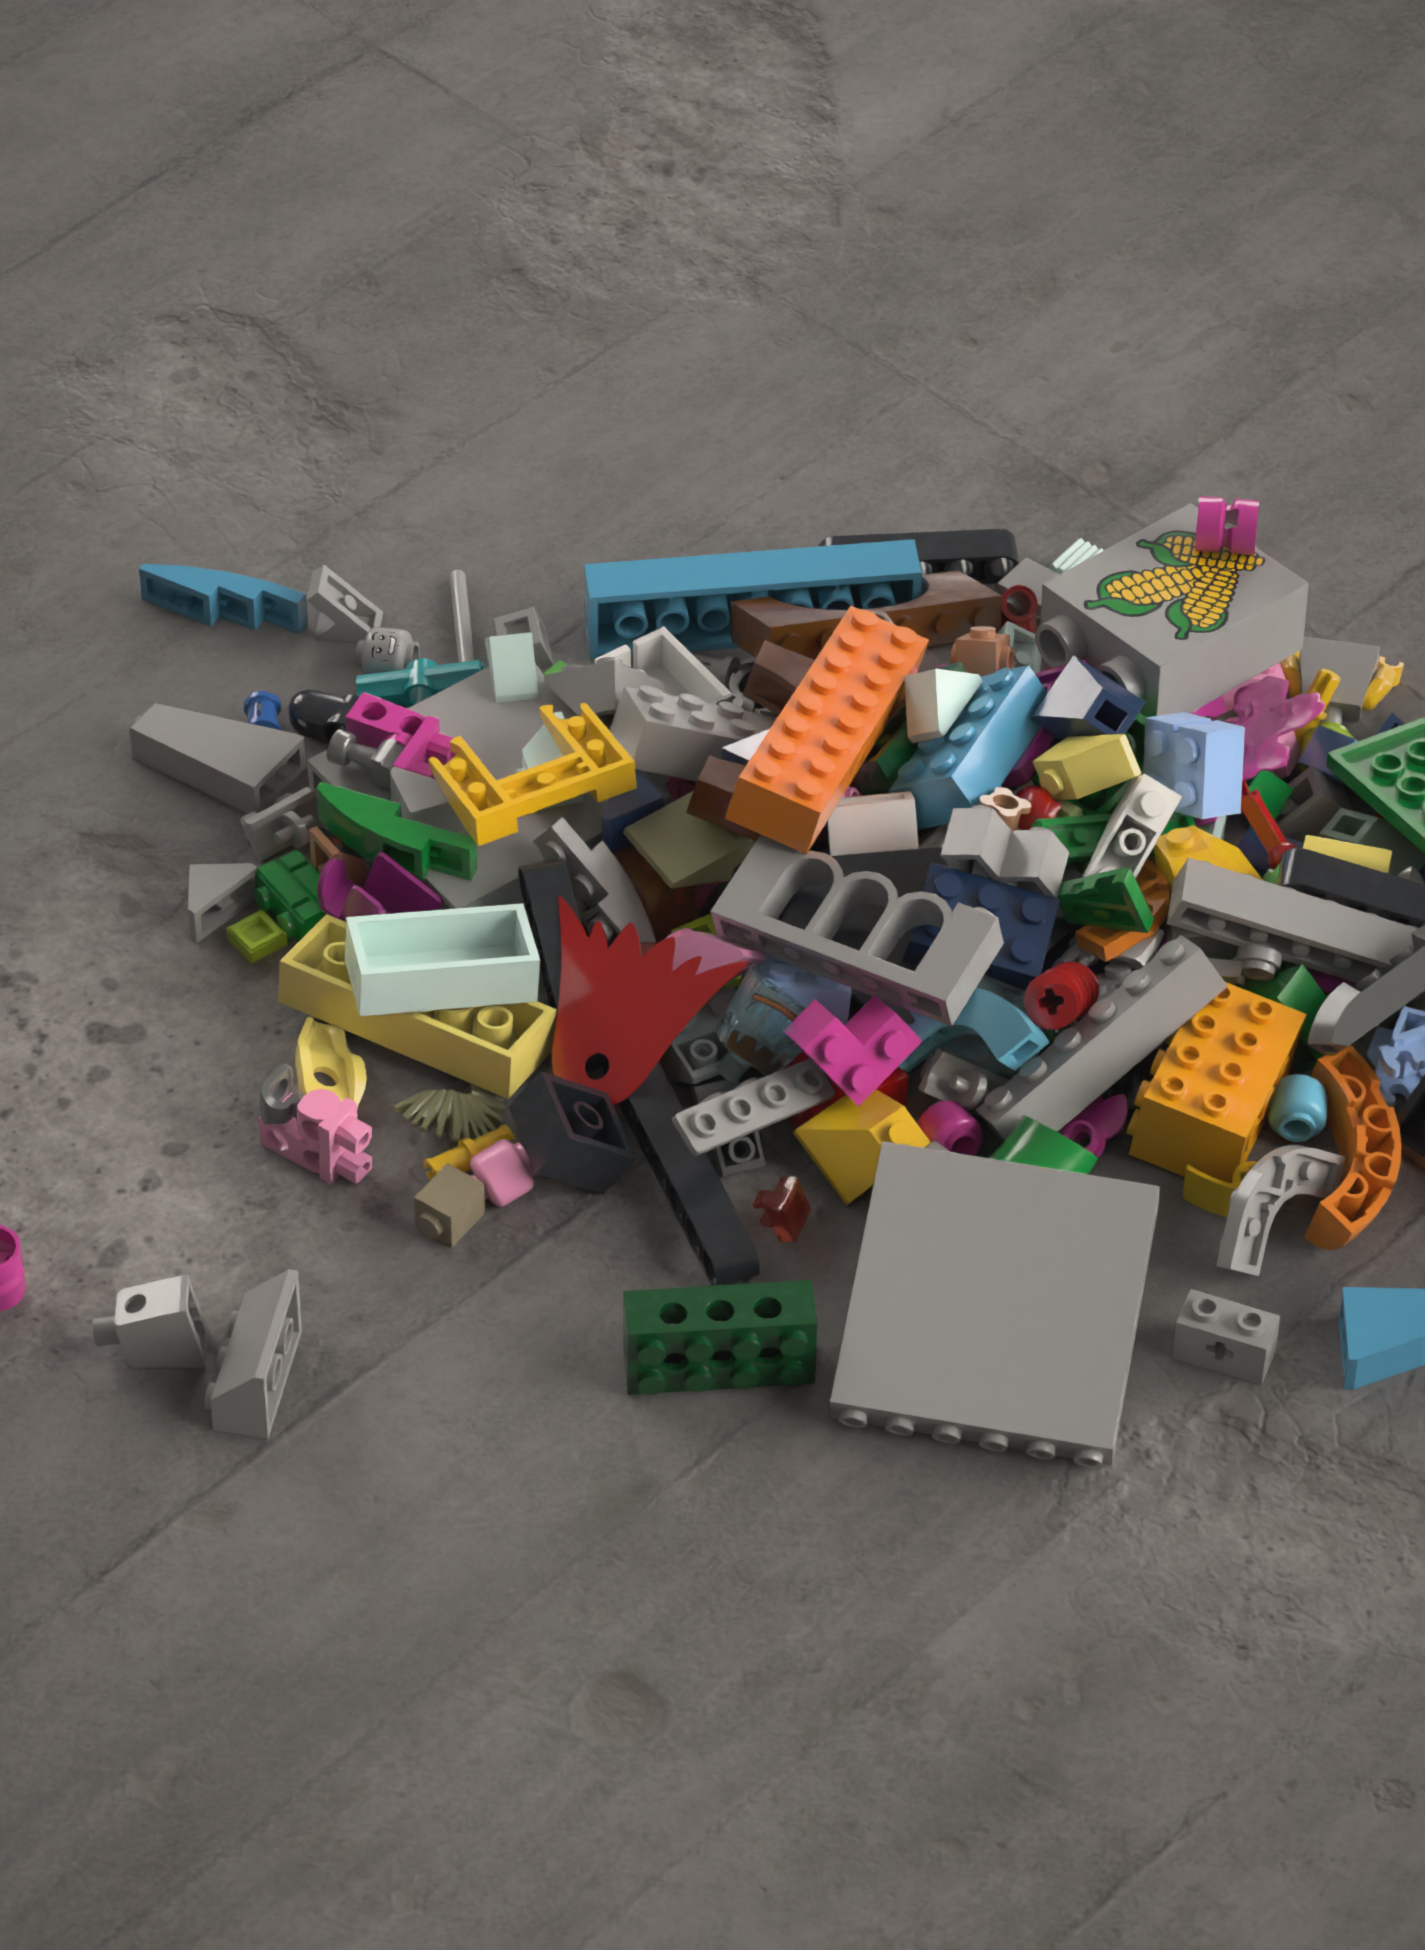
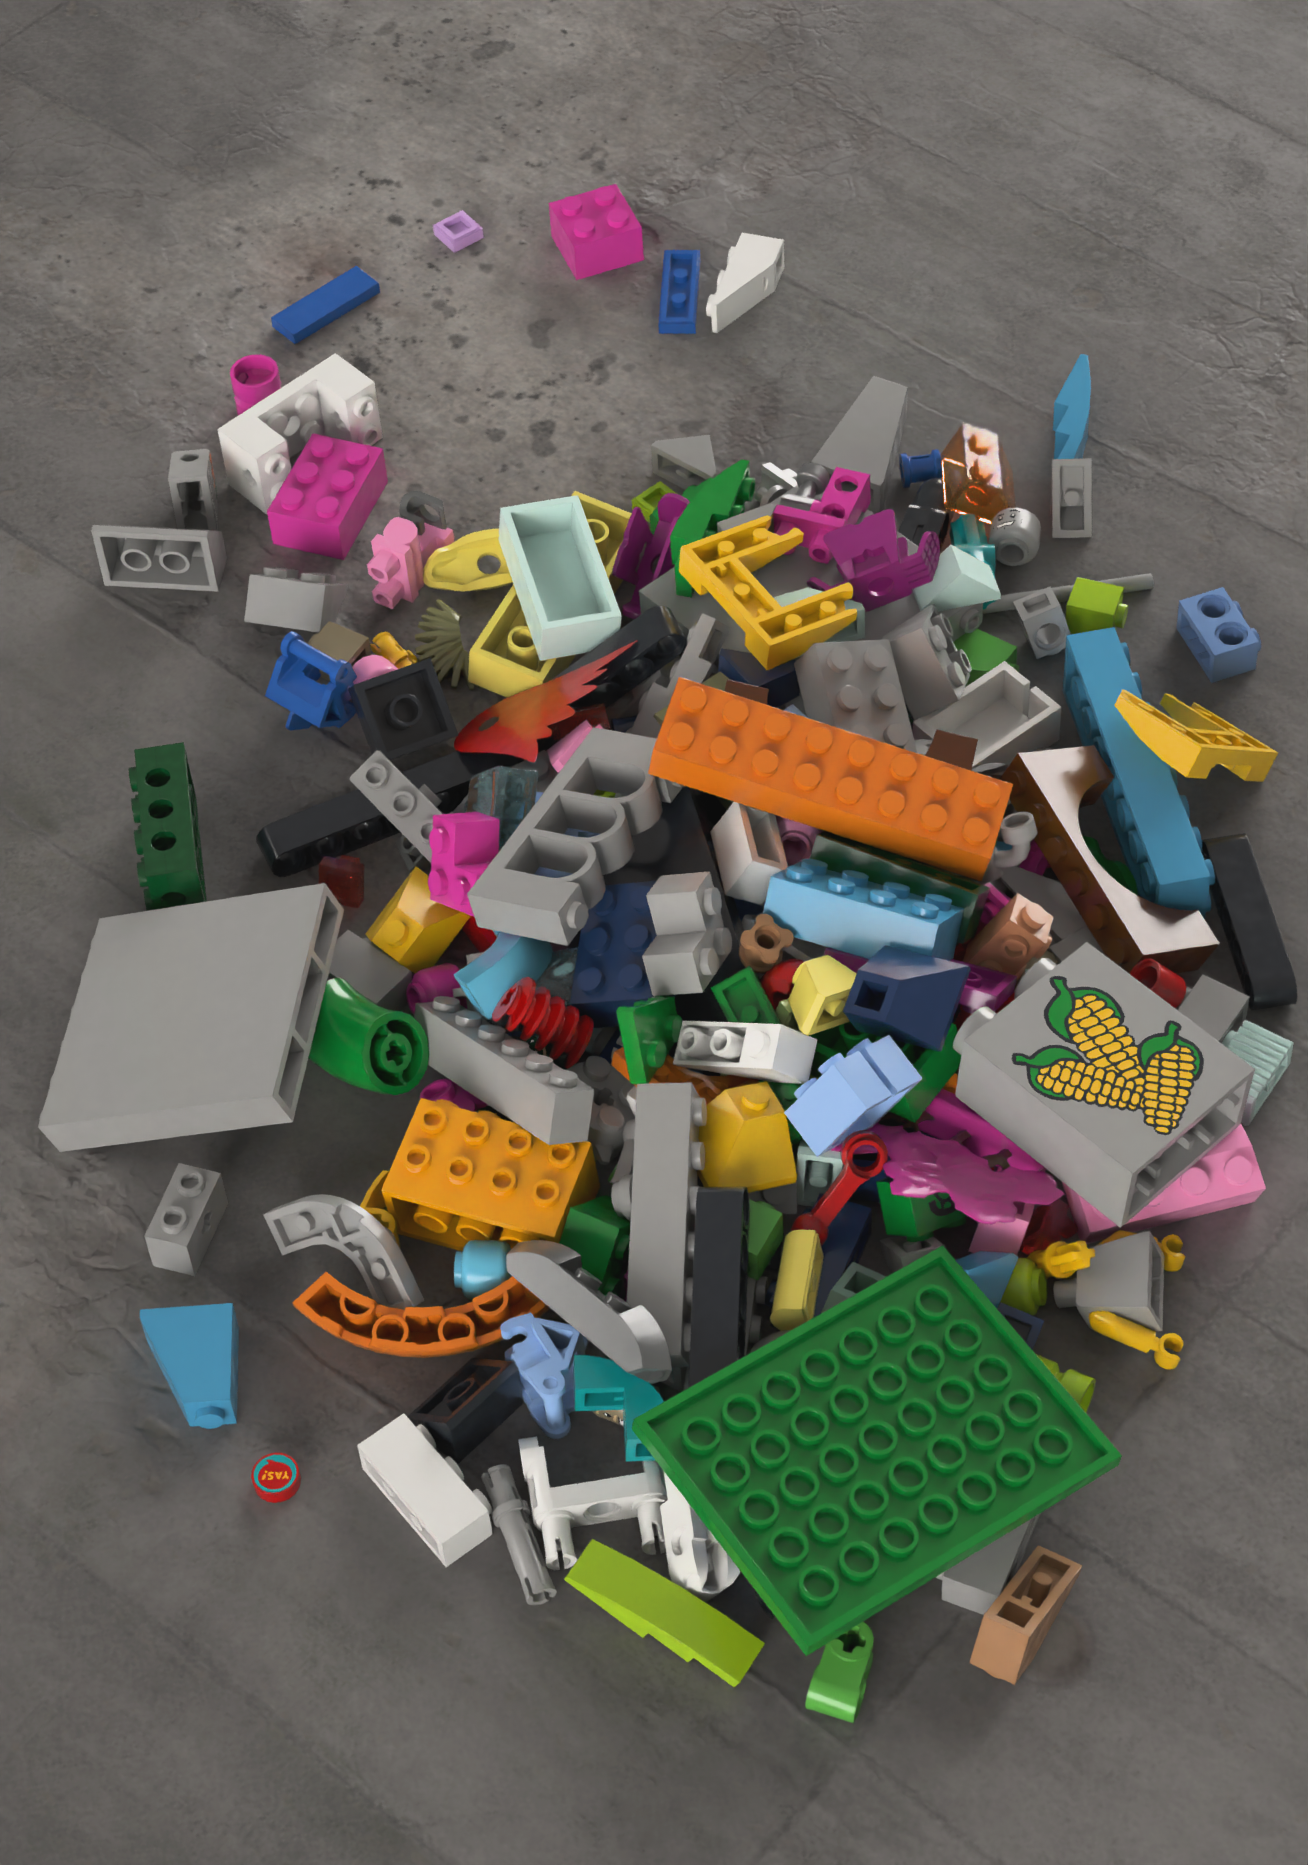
camera: 90 degrees right, 5 degrees up
(56, 1194) = (324, 401): none -> white plate
(191, 1208) = (327, 496): none -> dark pink brick
(308, 660) = (977, 474): none -> clear orange slope
(356, 1241) = (293, 601): none -> light grey slope
(485, 707) = (878, 561): none -> magenta piece
(496, 600) = (1095, 606): none -> lime brick
(527, 1224) = (296, 689): none -> blue piece
(552, 532) = (1218, 634): none -> medium blue brick
(736, 531) = (1195, 738): none -> yellow wedge
(936, 700) = (900, 868): light aqua slope -> none
(1211, 529) = (1186, 1081): dark pink wheel -> none

